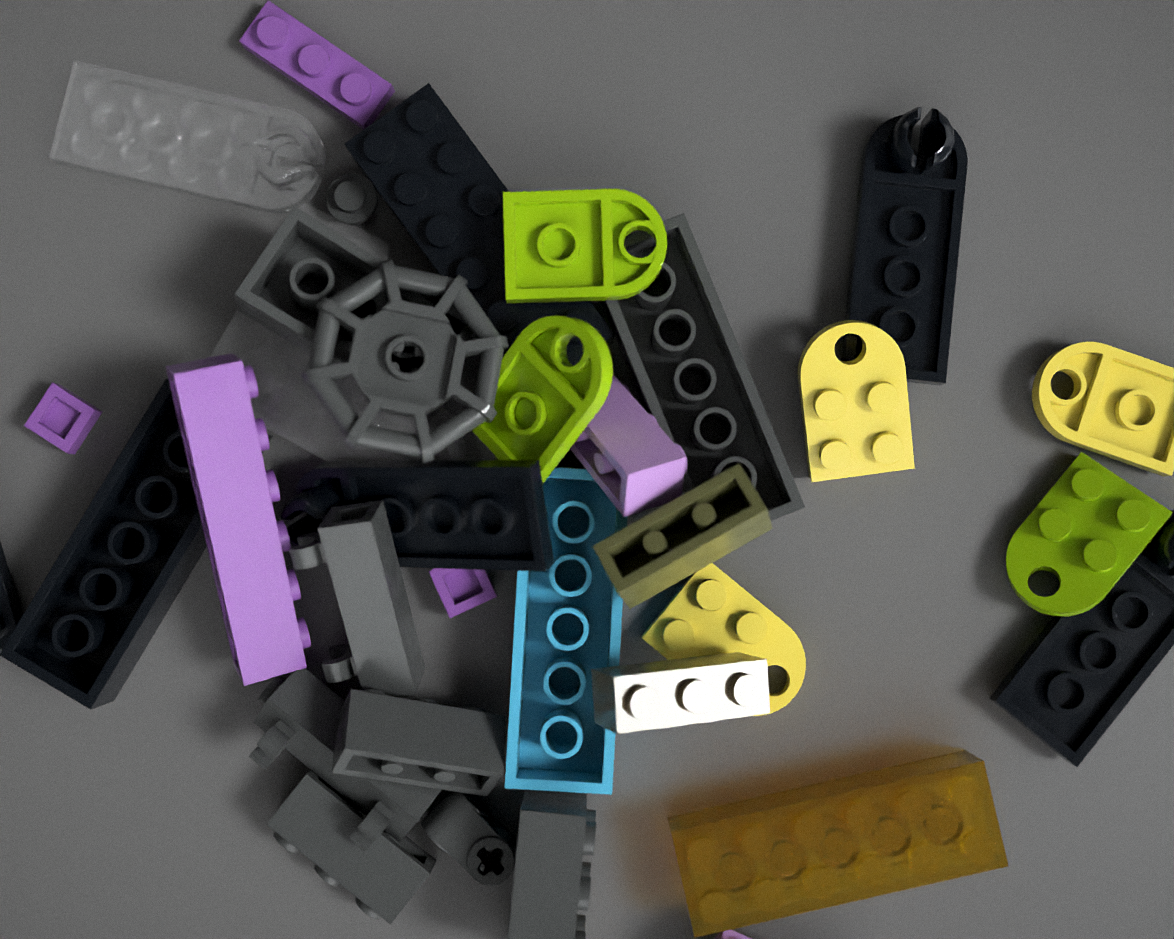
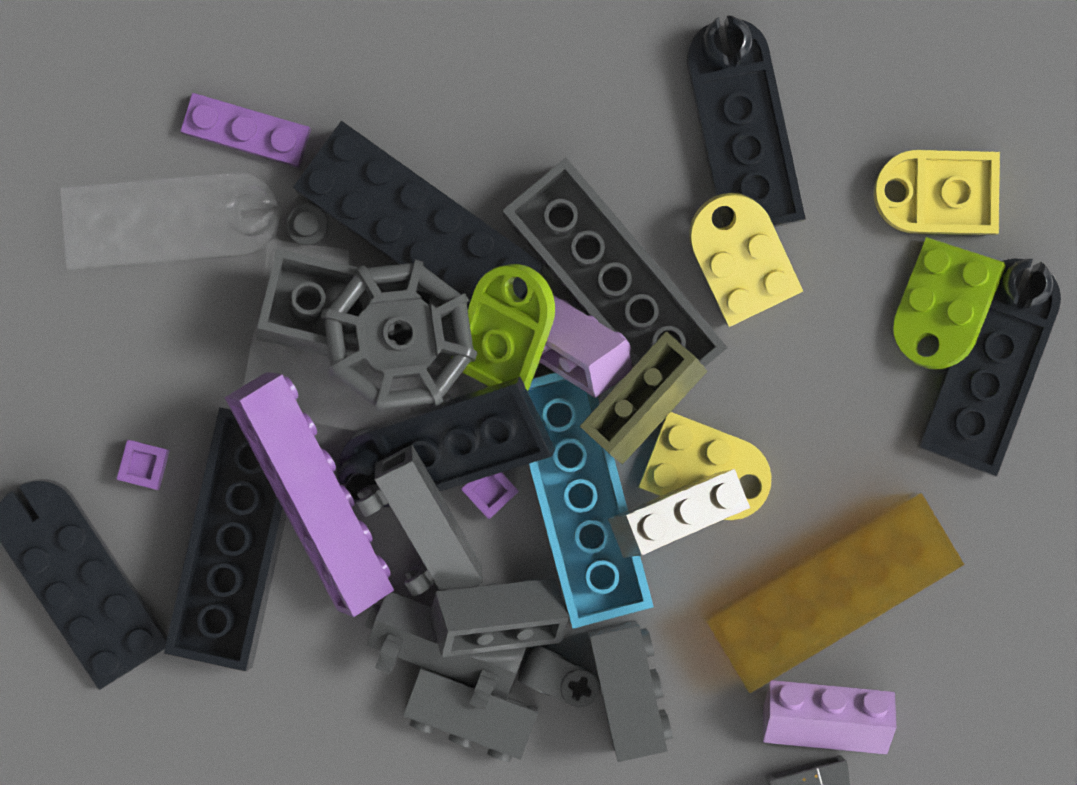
camera: 20 degrees left, 0 degrees up
(573, 245) = (493, 209): lime plate -> none

